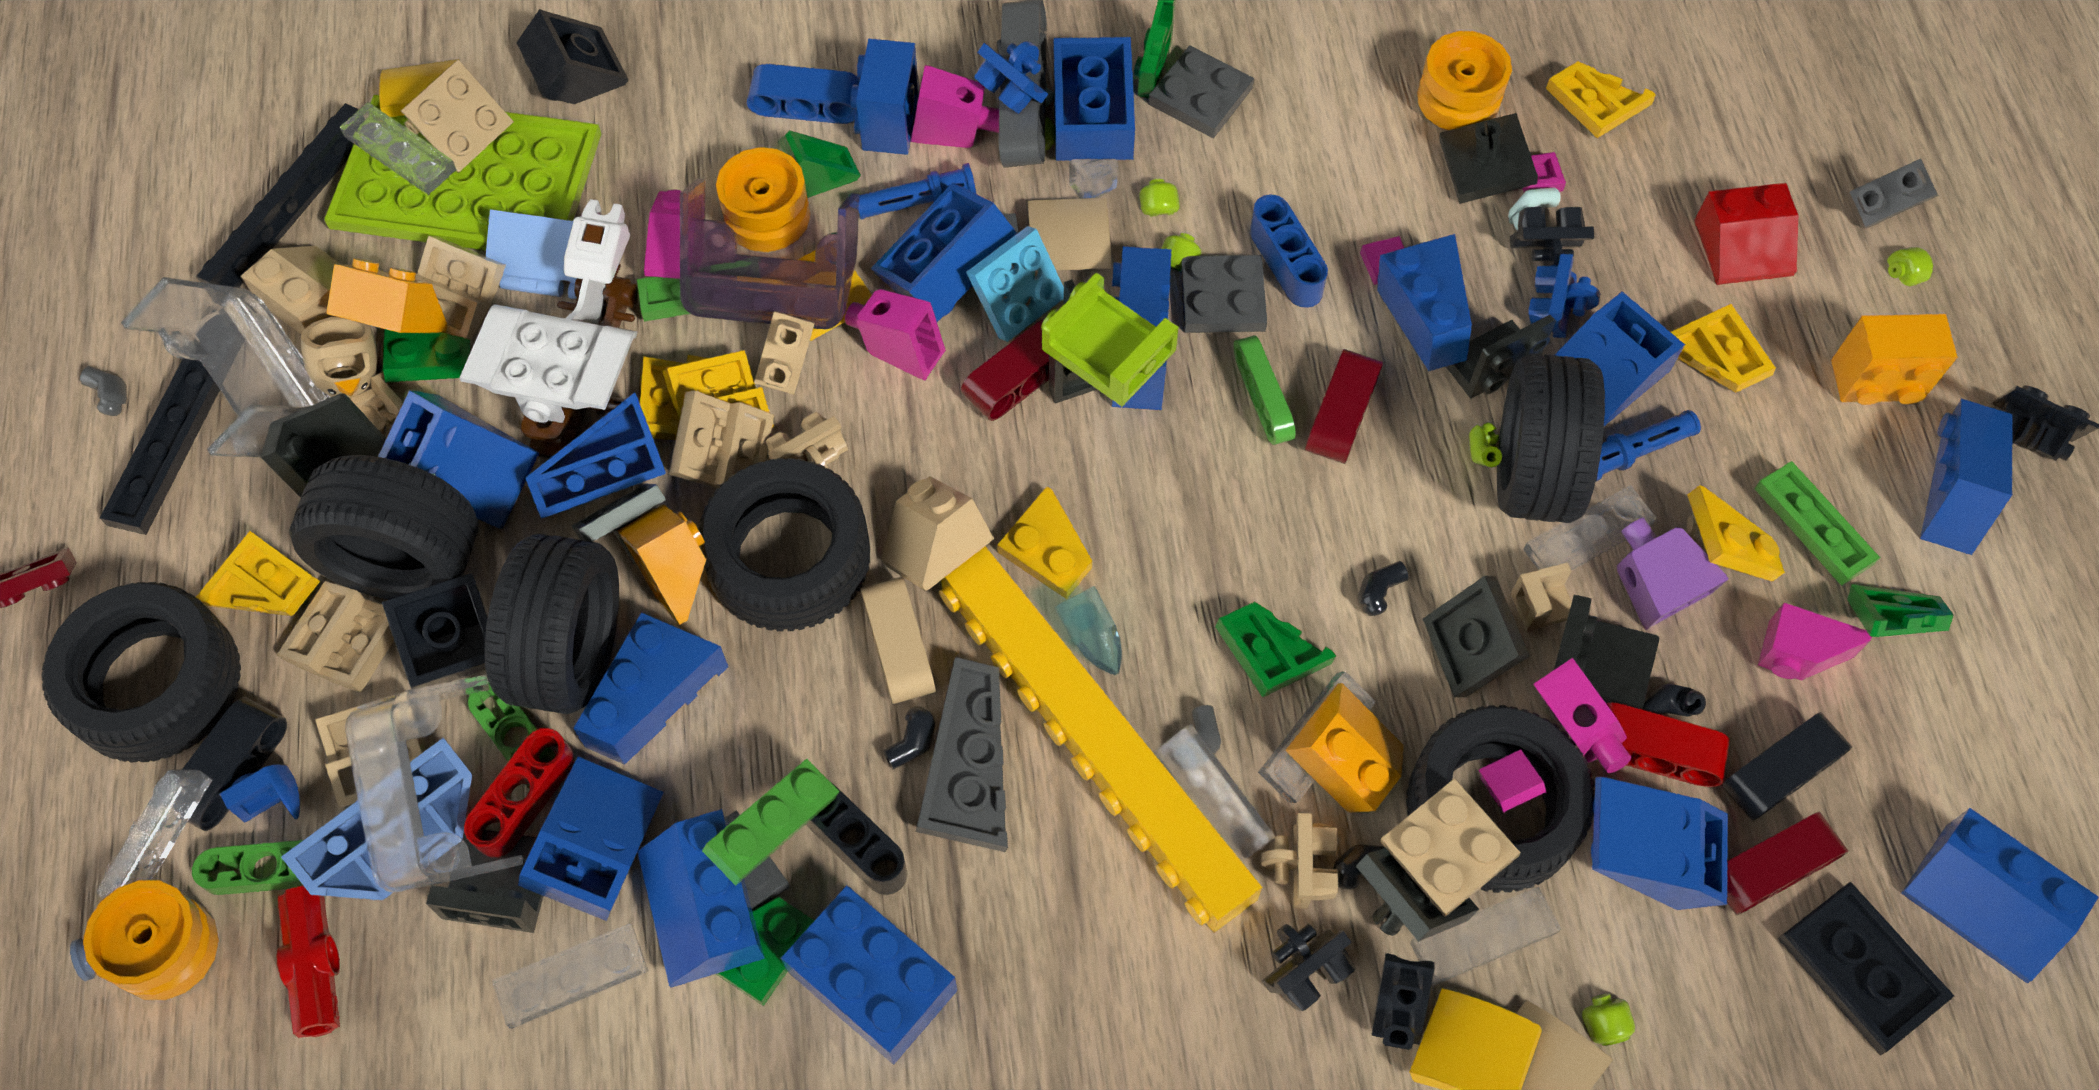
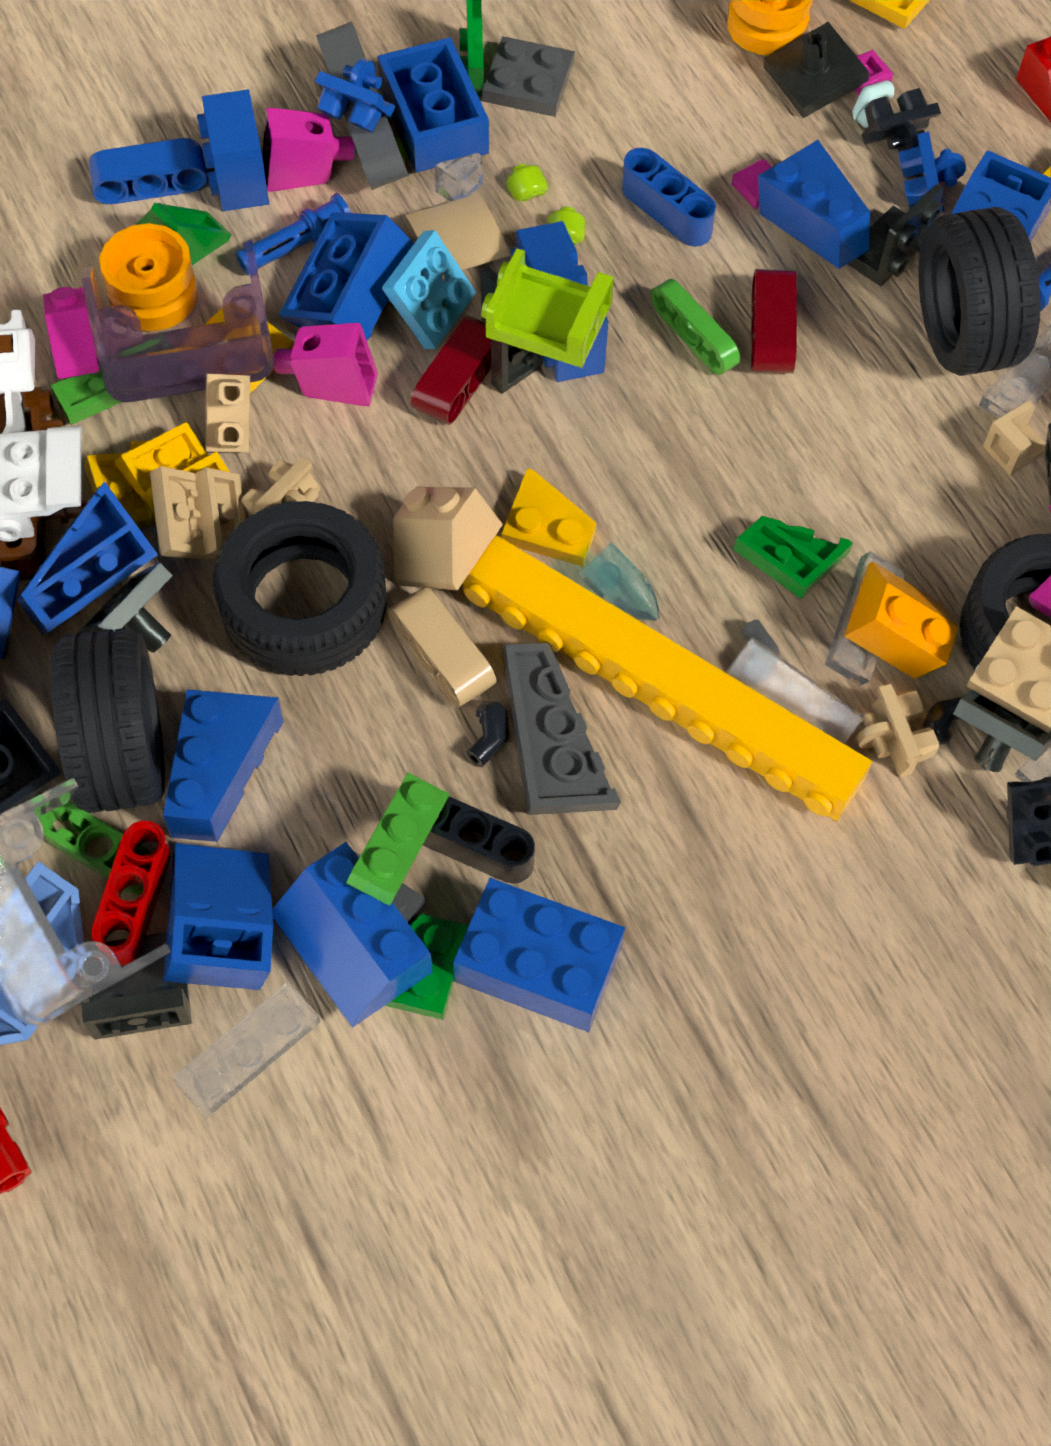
camera: 20 degrees left, 0 degrees up
(668, 557) = (195, 631): light orange slope -> none
(1223, 294) = (623, 248): dark grey plate -> none
(1323, 952) = (928, 813): black hips -> none
(1376, 584) = (864, 474): black arm -> none
(1475, 637) = (974, 487): pearl dark grey tile -> none
(1480, 440) = (910, 322): lime arm -> none

